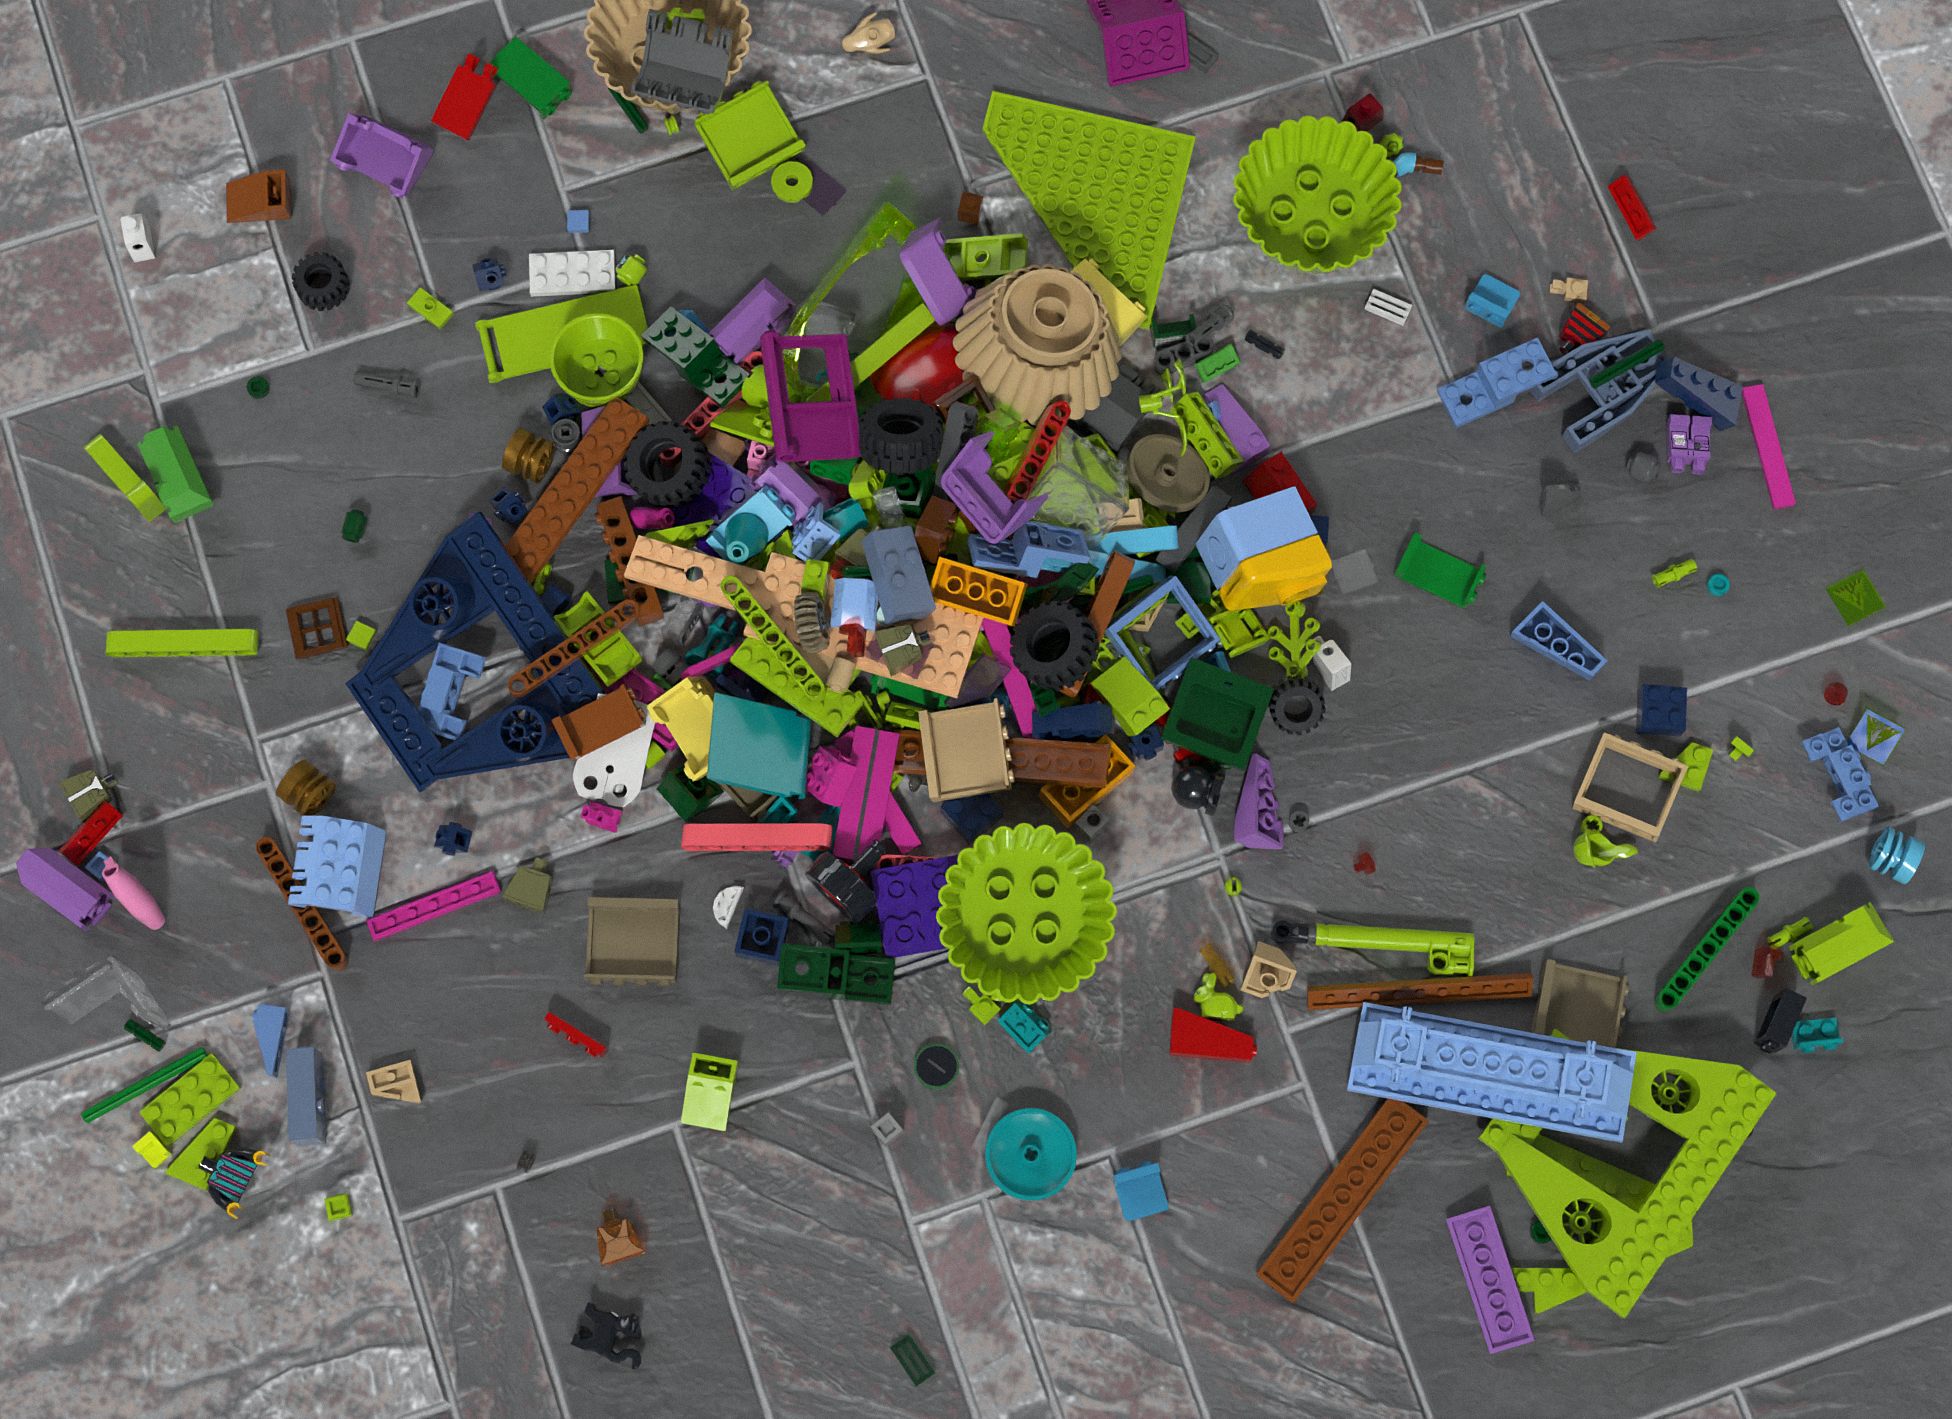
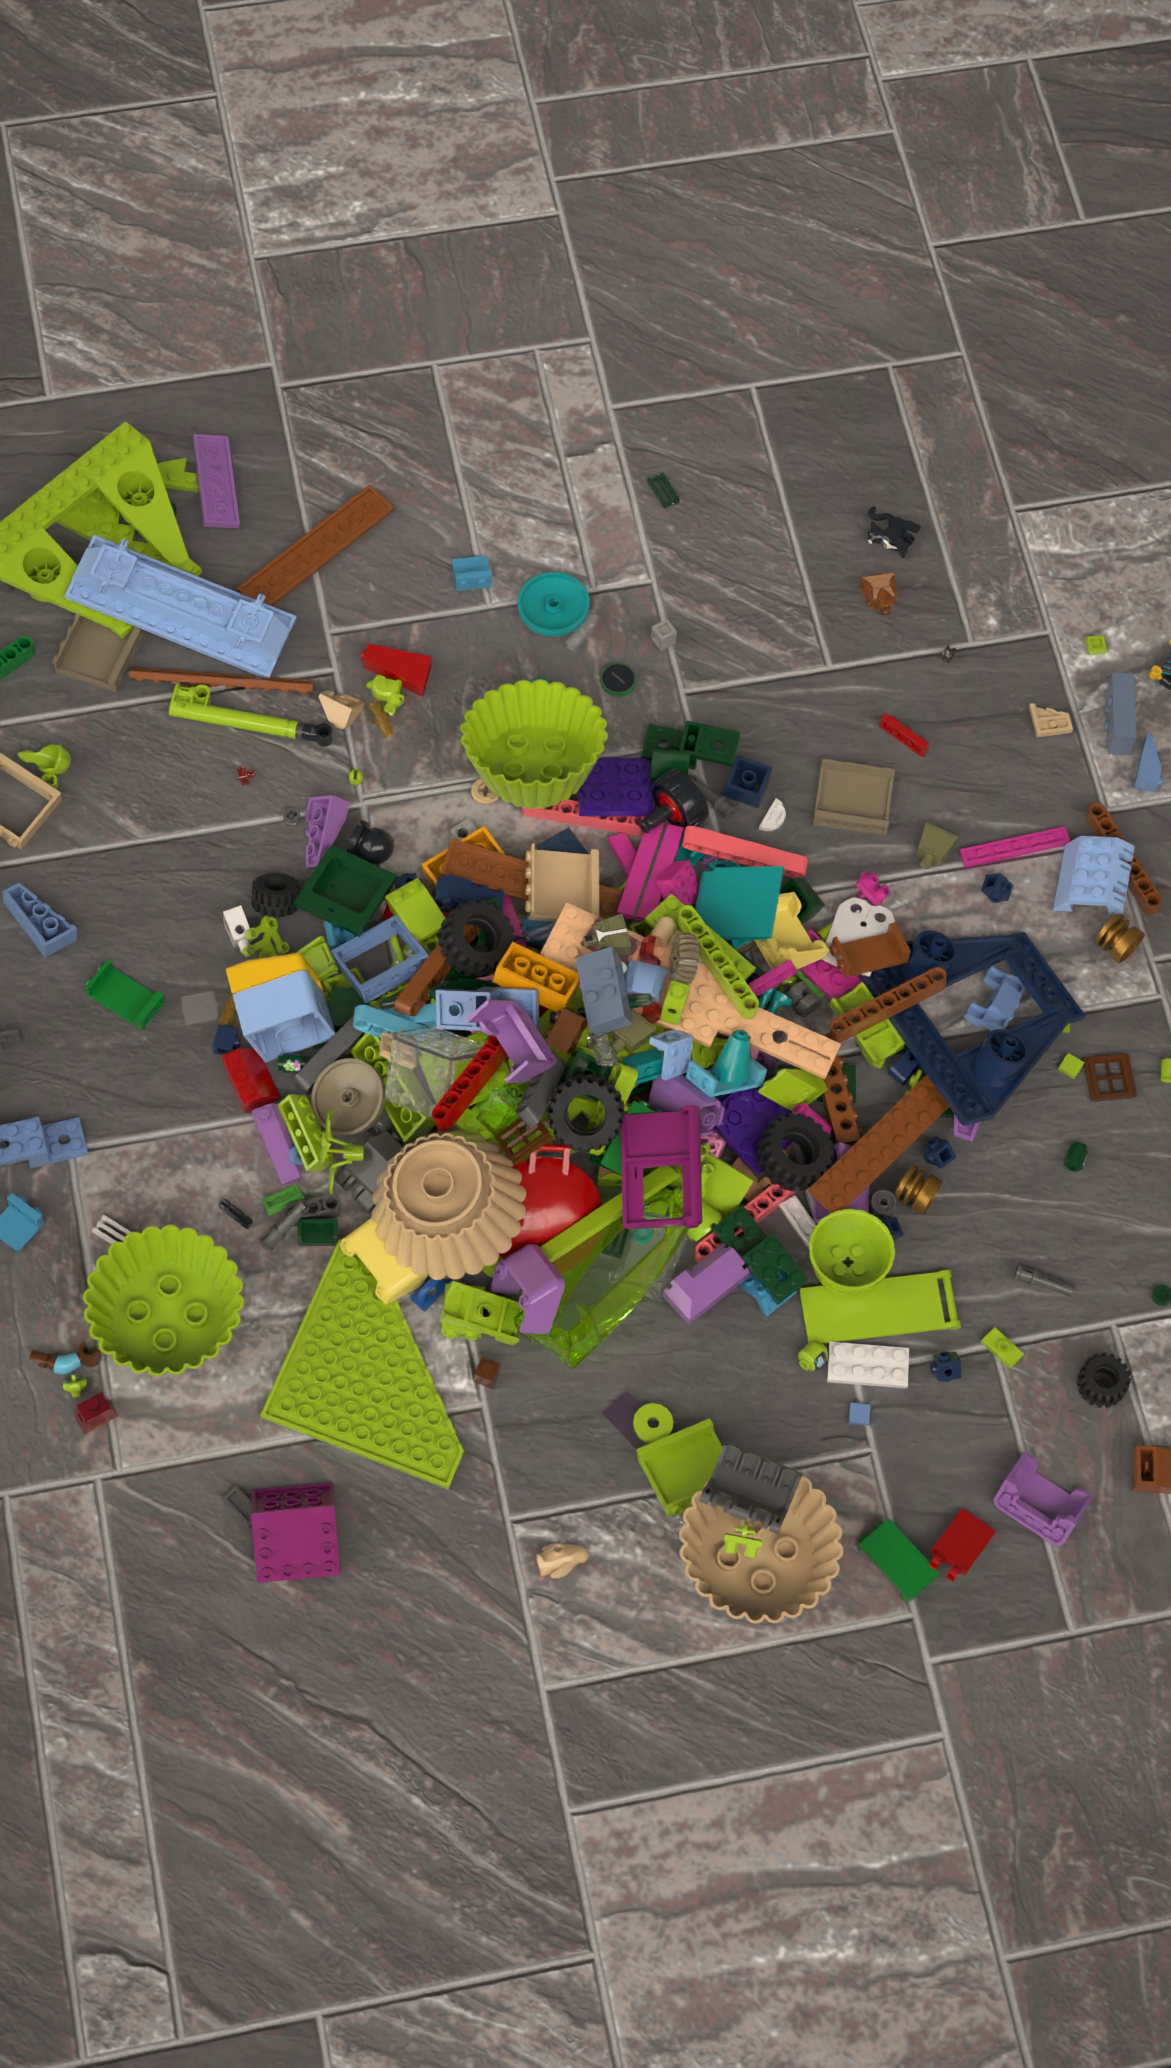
camera: 175 degrees left, 10 degrees down
(709, 1091) = (799, 683): lime slope -> none

